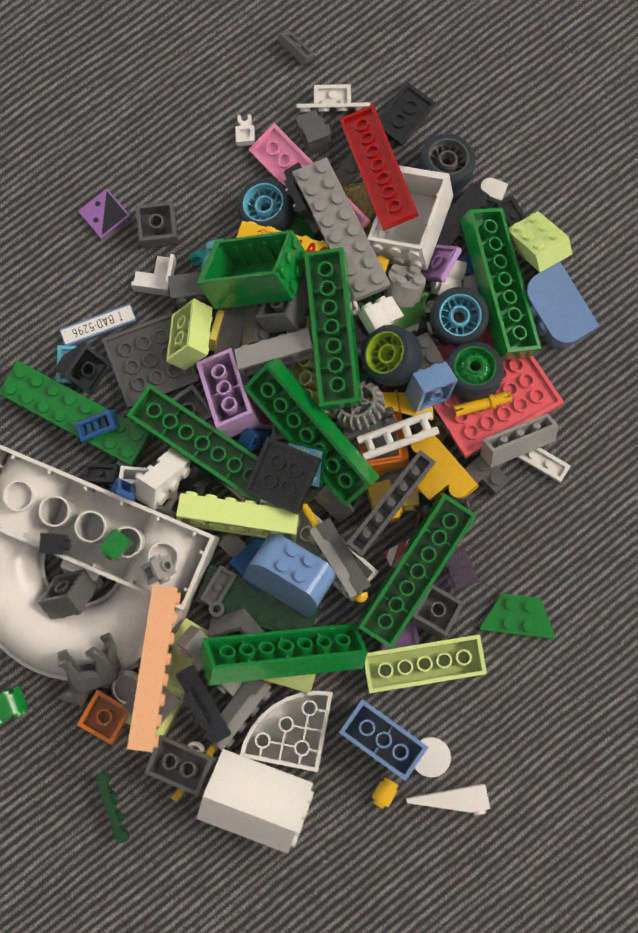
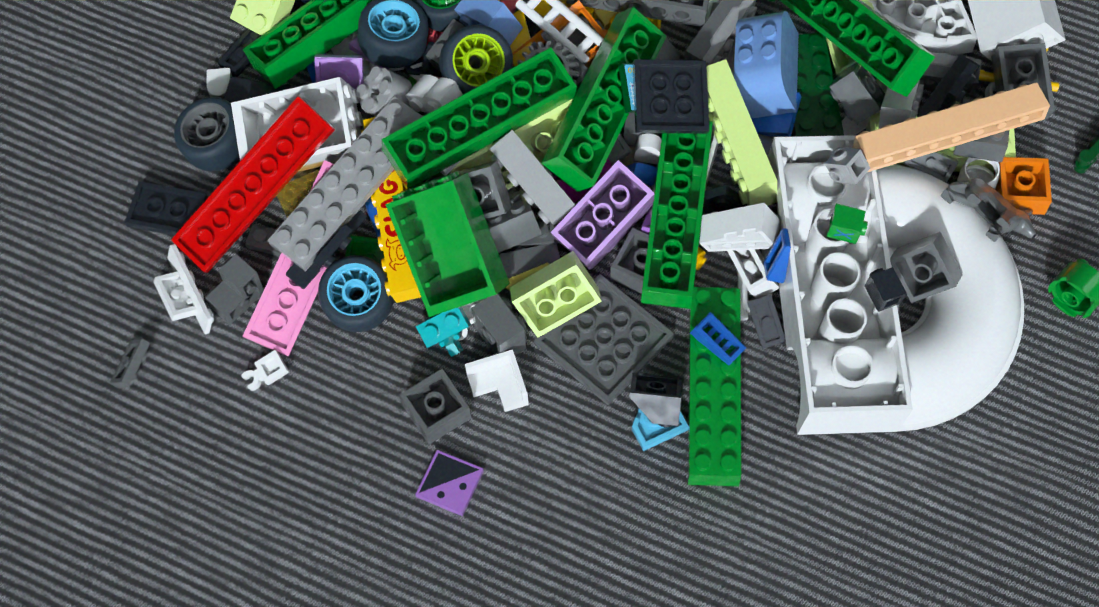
camera: 115 degrees left, 15 degrees down
(98, 325) = (593, 419): white tile -> none
(218, 589) = (824, 125): dark grey hinge -> none

